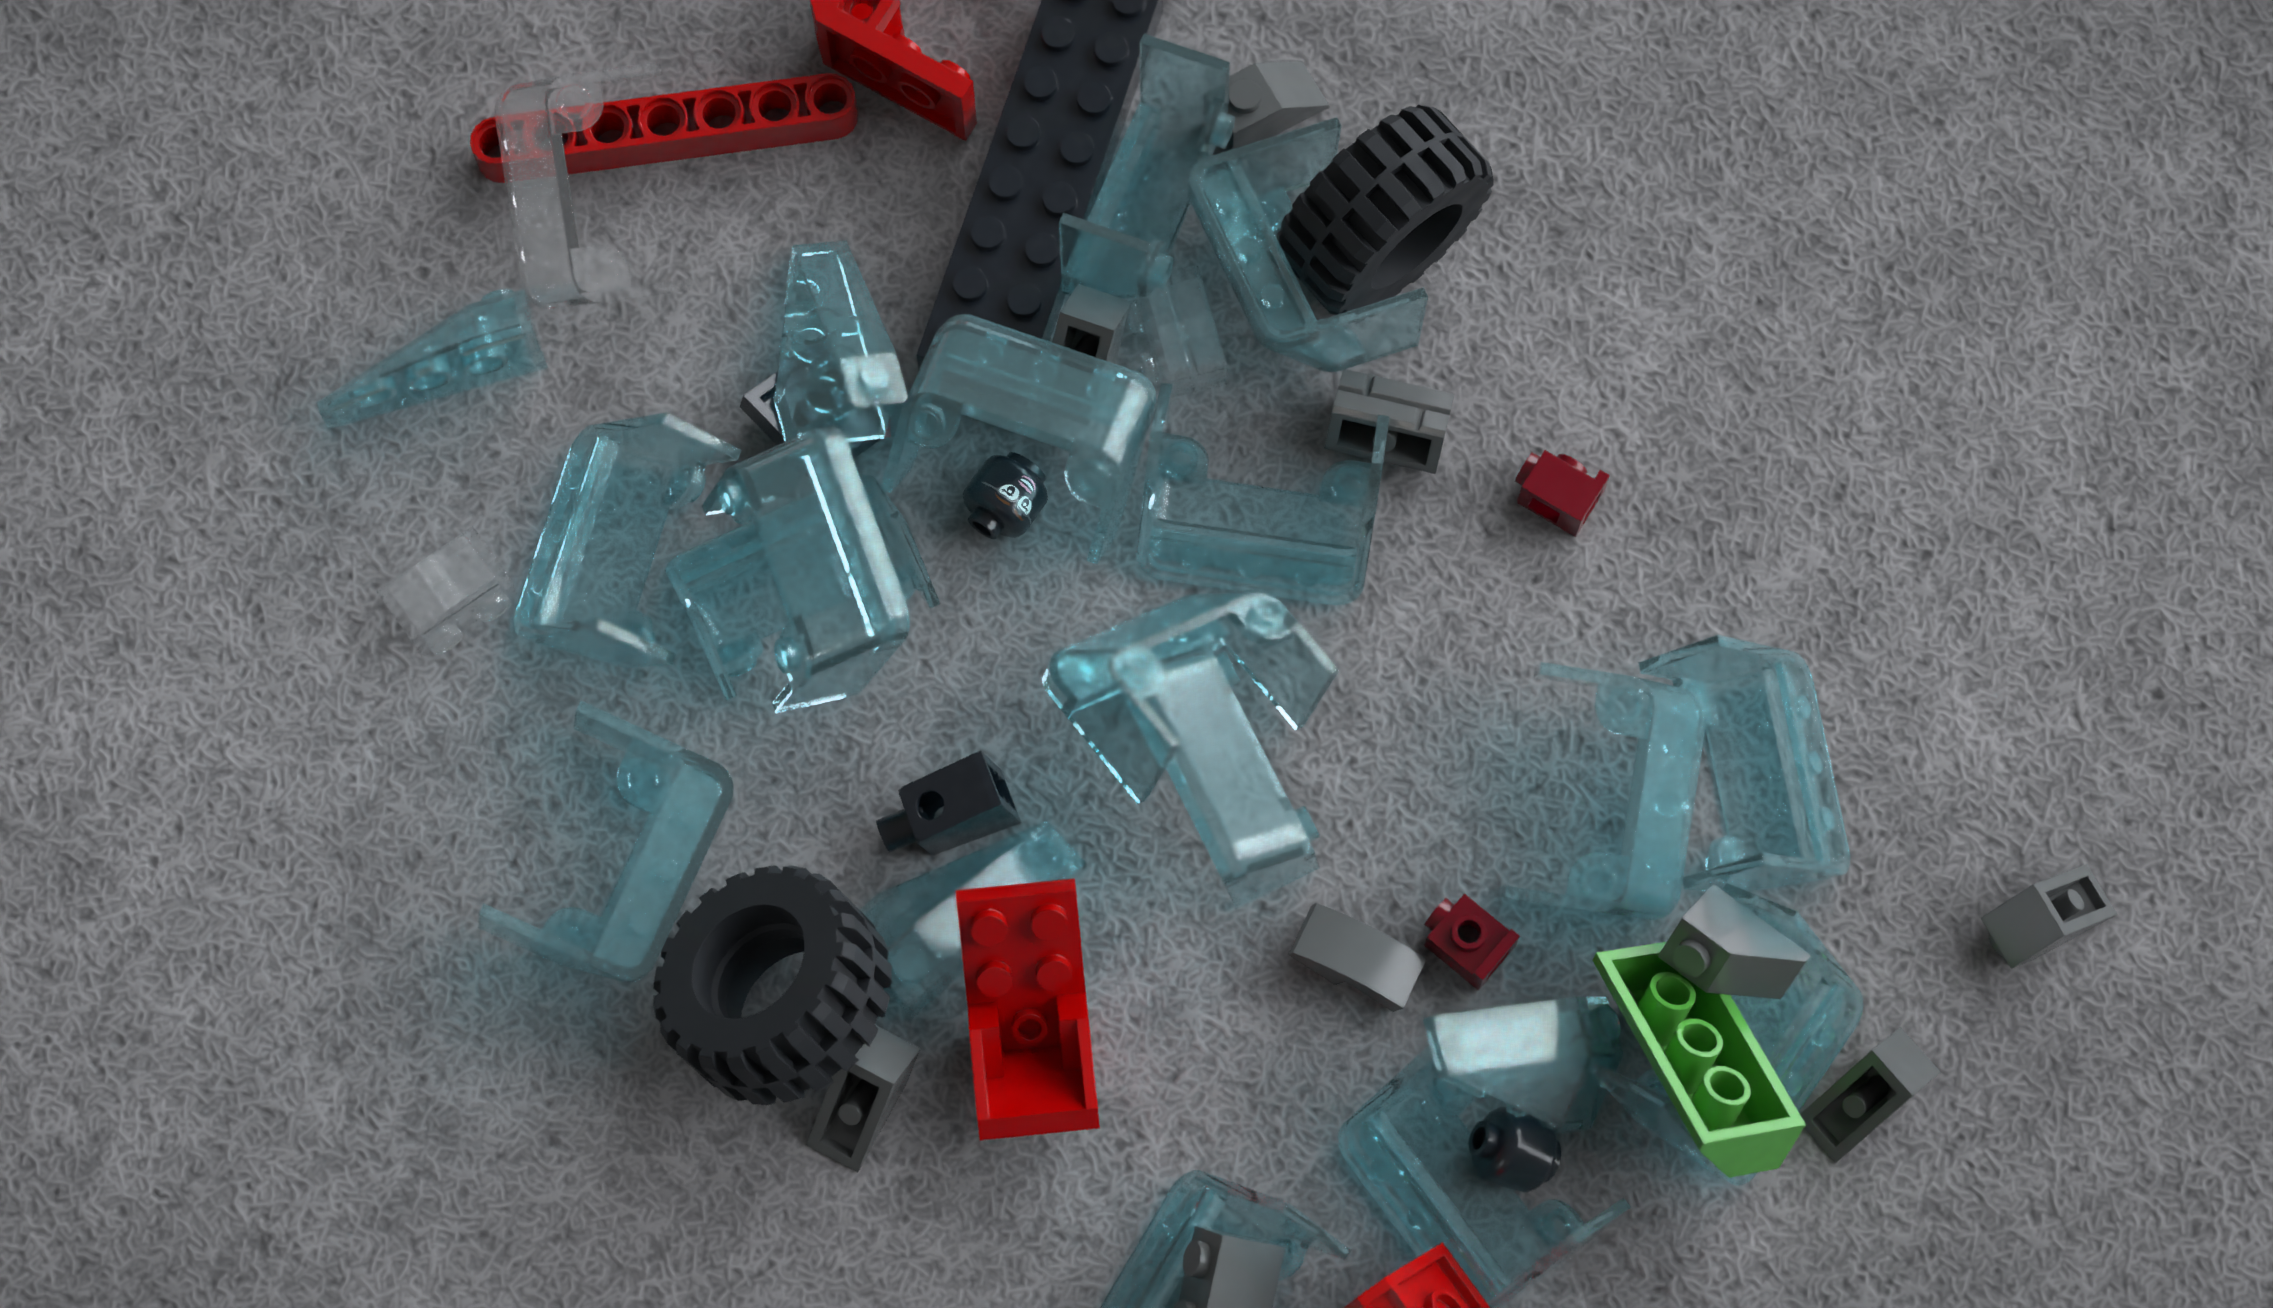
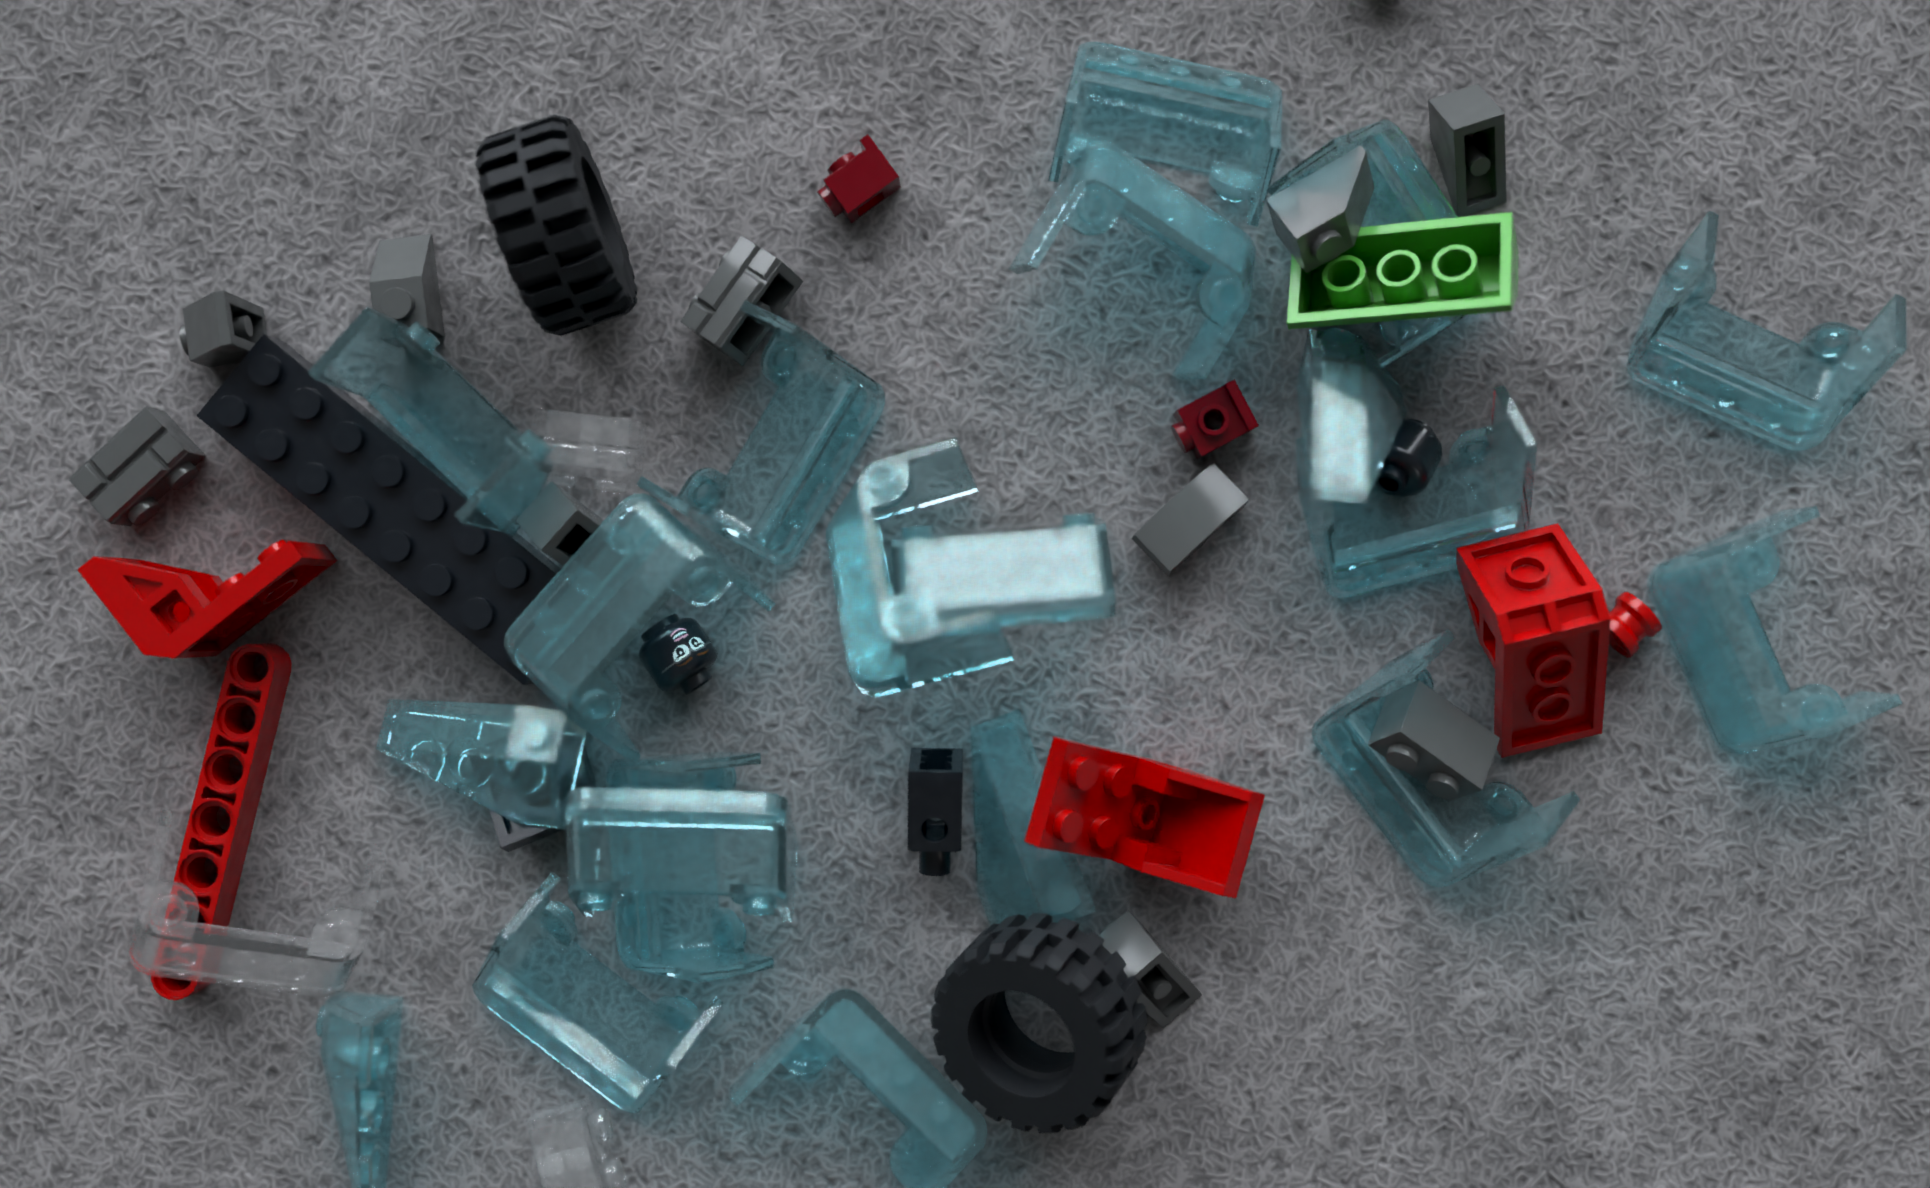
camera: 65 degrees left, 15 degrees up
(1241, 208) = (495, 344): clear light blue windscreen -> none

